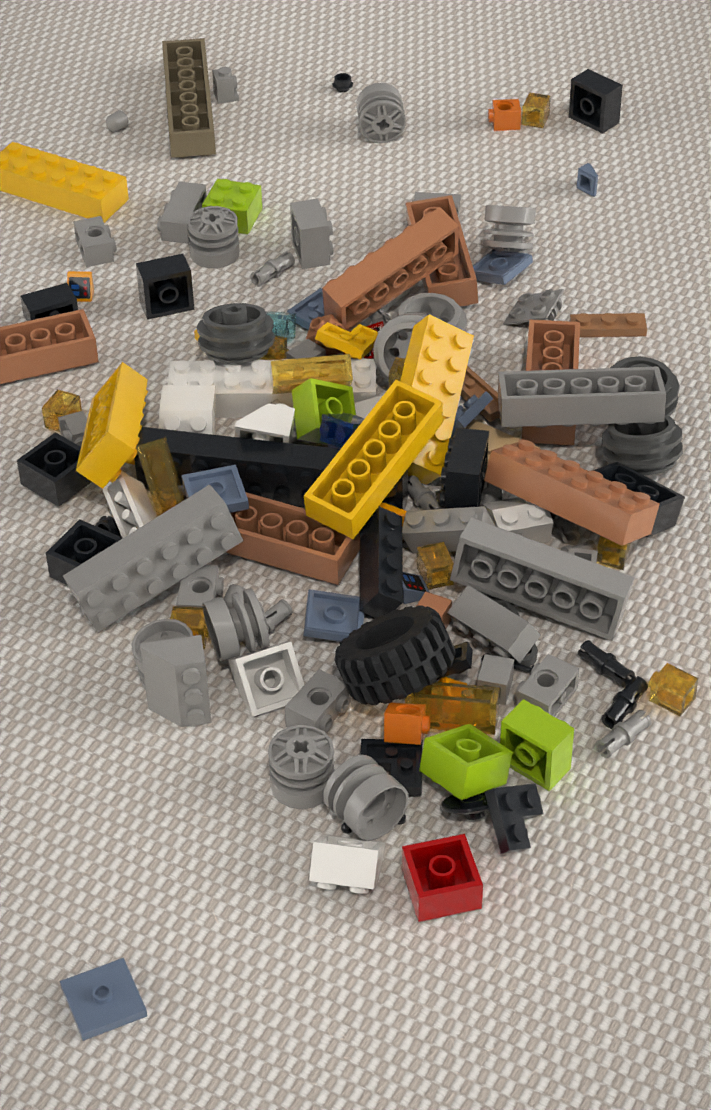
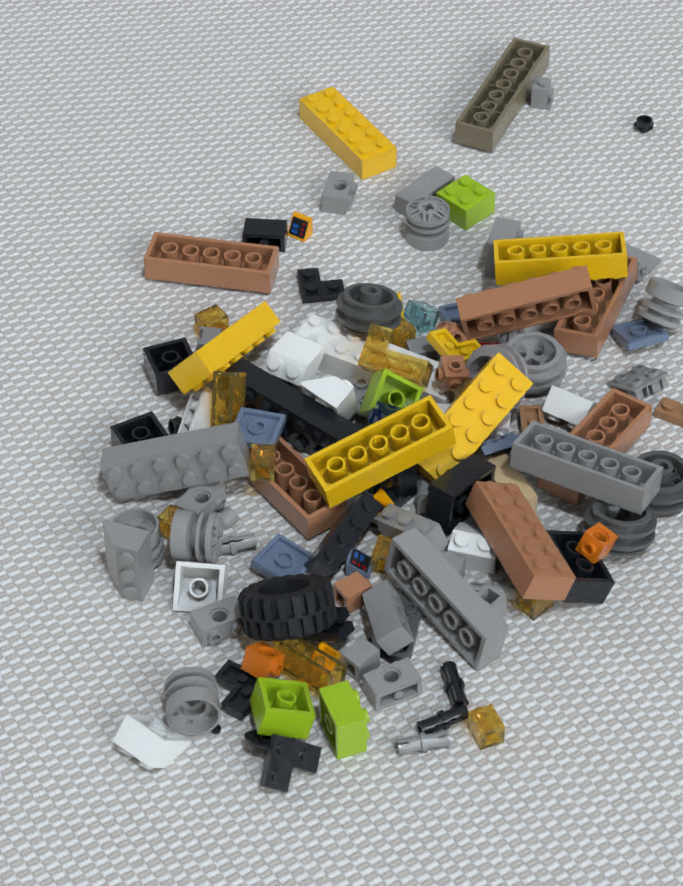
camera: 30 degrees right, 0 degrees up
(117, 121) = (434, 95): light grey piece -> none
(144, 342) = (314, 289): none -> black plate
(165, 286) = (357, 251): black brick -> none
(251, 520) = (263, 462): none -> clear yellow brick
(272, 268) = (458, 266): light grey pin -> none
(272, 350) = (379, 336): none -> clear yellow brick
(300, 766) = (165, 652): light grey wheel -> none
(372, 222) = (538, 256): none -> yellow brick
(372, 360) = (451, 372): none -> nougat brick
(381, 113) = (645, 163): light grey wheel -> none
(442, 877) = (201, 781): red brick -> none
(496, 355) = (567, 406): none -> white slope
(644, 465) = (596, 542): none -> orange brick

